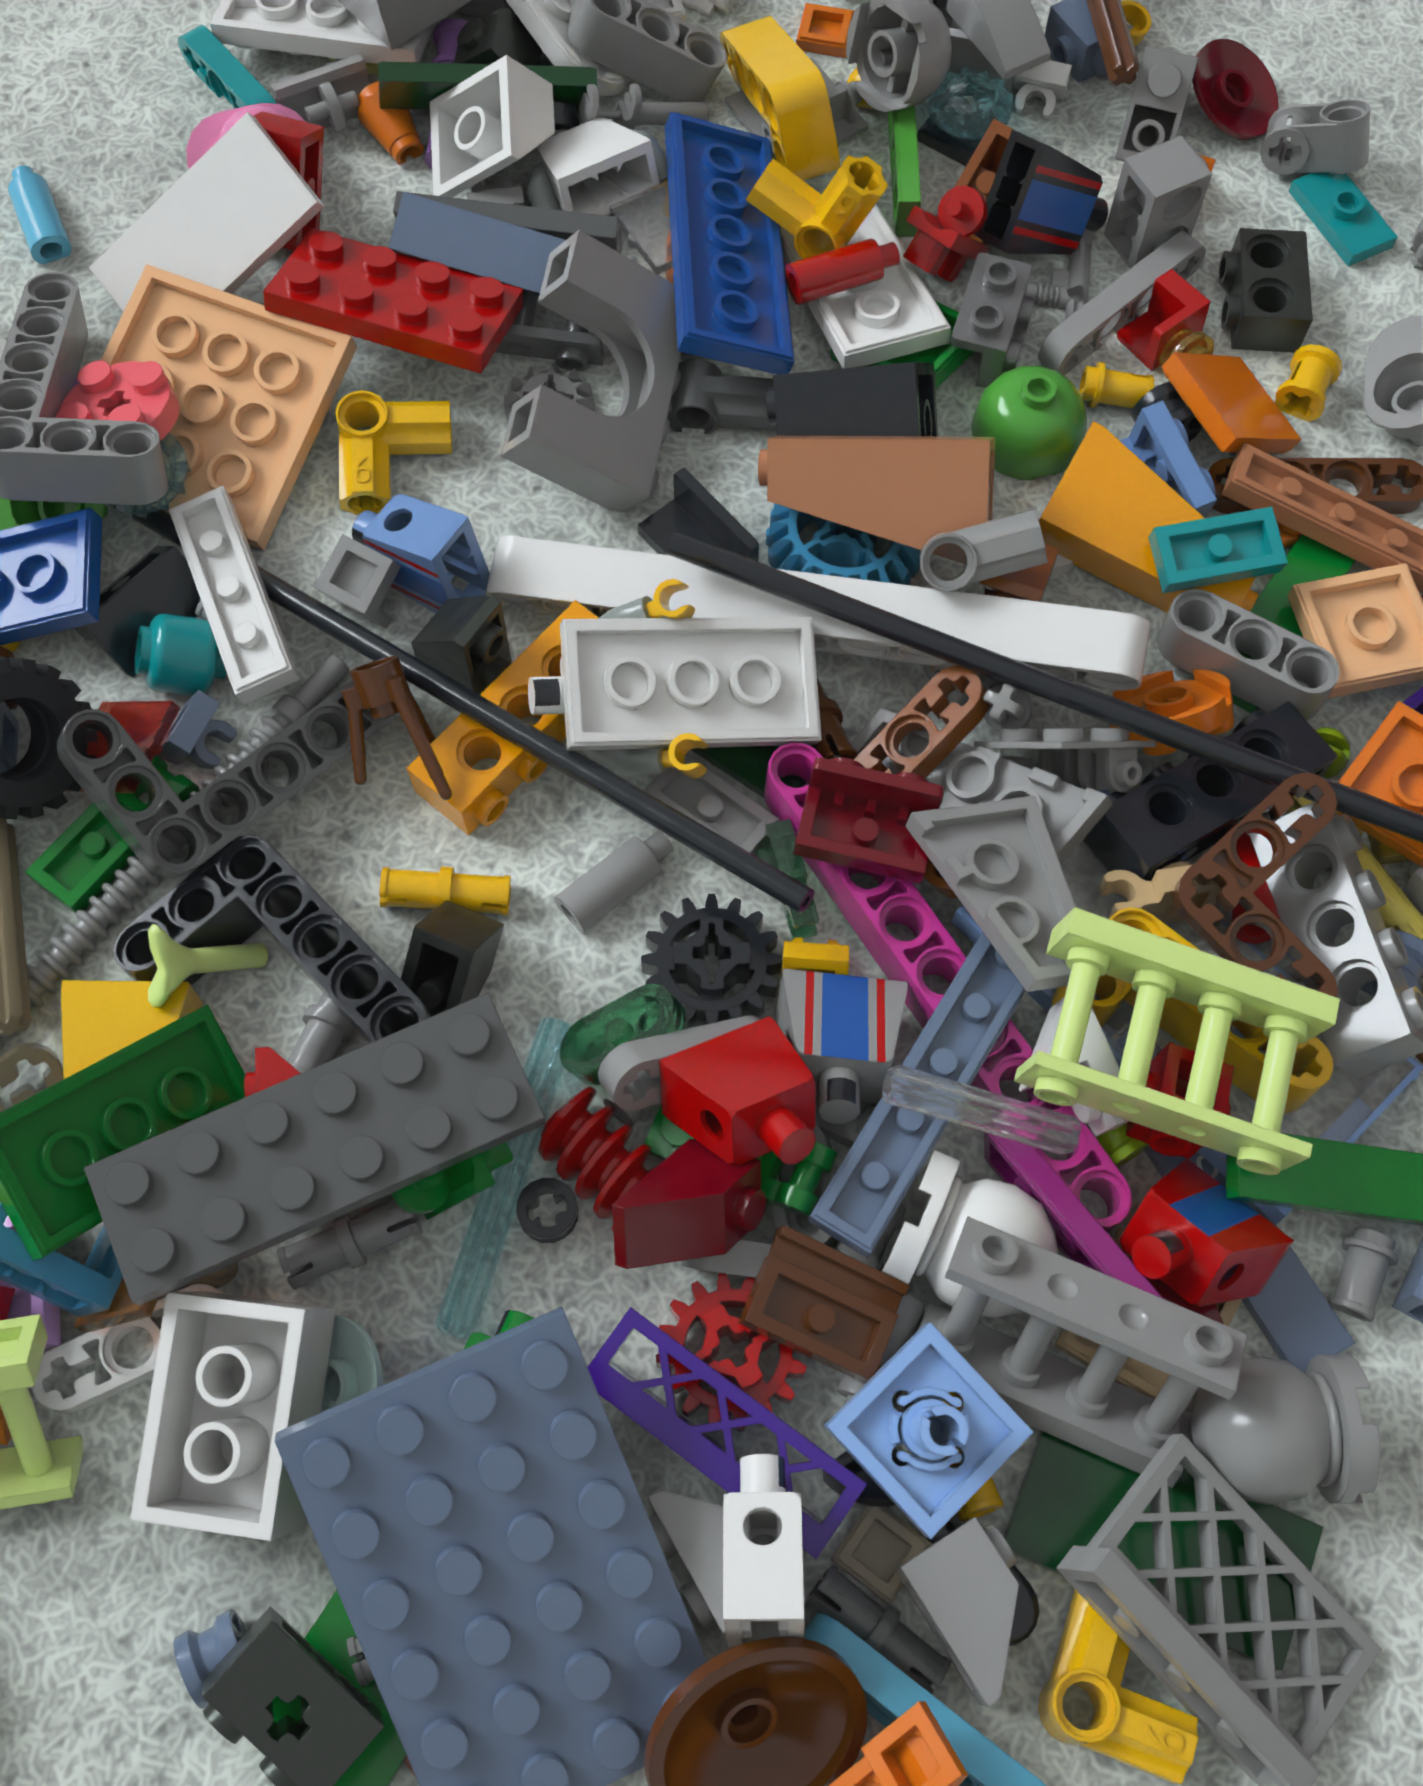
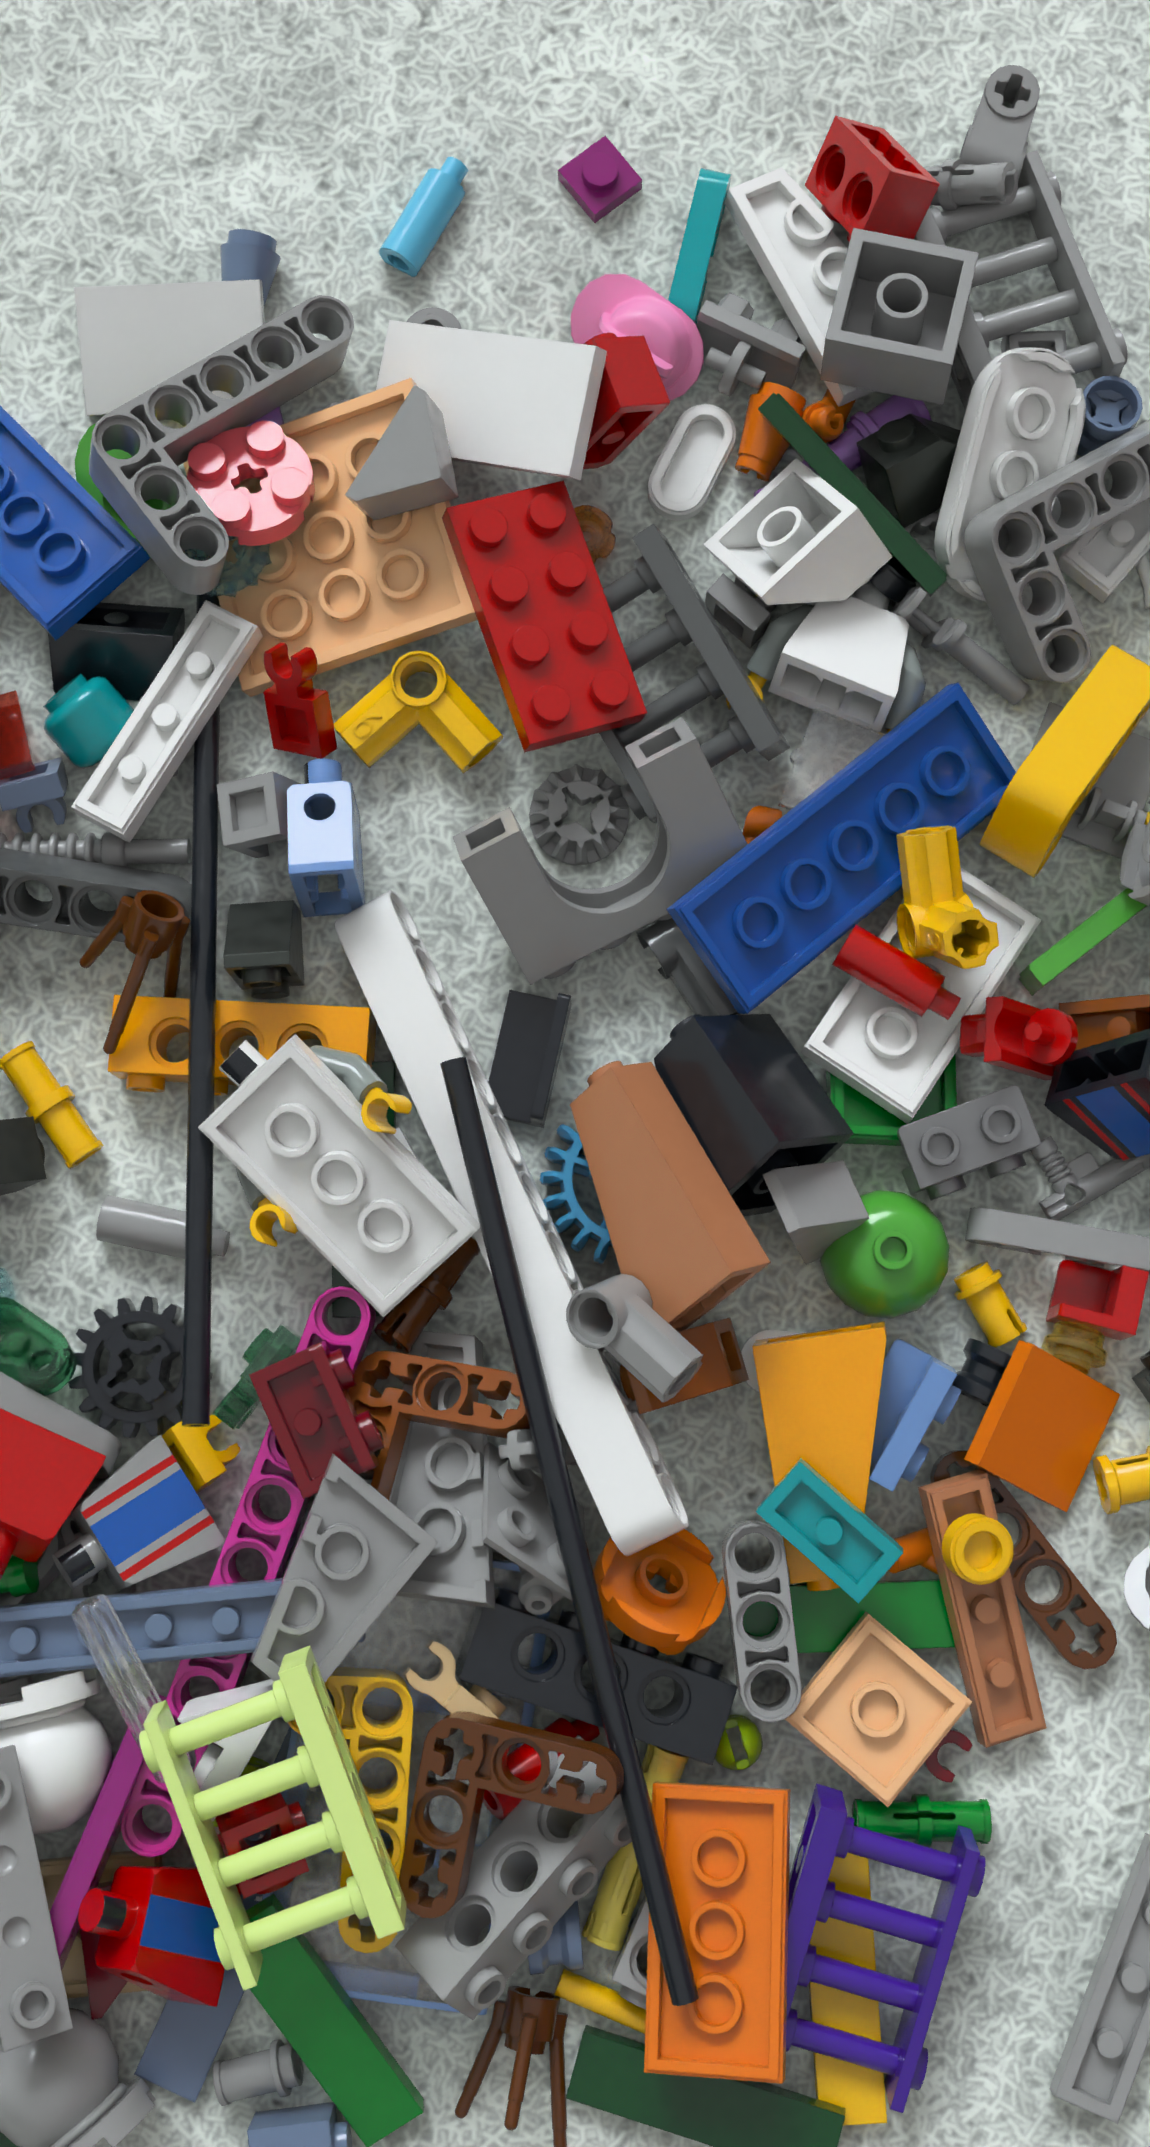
camera: 55 degrees right, 15 degrees up
(121, 107) = (600, 179): none -> magenta plate
(213, 292) = (409, 463): none -> light grey slope
(308, 510) = (295, 710): none -> red plate
(365, 181) = (691, 462): none -> white tile
(472, 242) = (655, 637): sand blue tile -> none
(714, 805) = (278, 1279): light grey plate -> none
(966, 413) = (816, 1205): none -> light grey slope
(1297, 478) = (977, 1548): none -> yellow tile

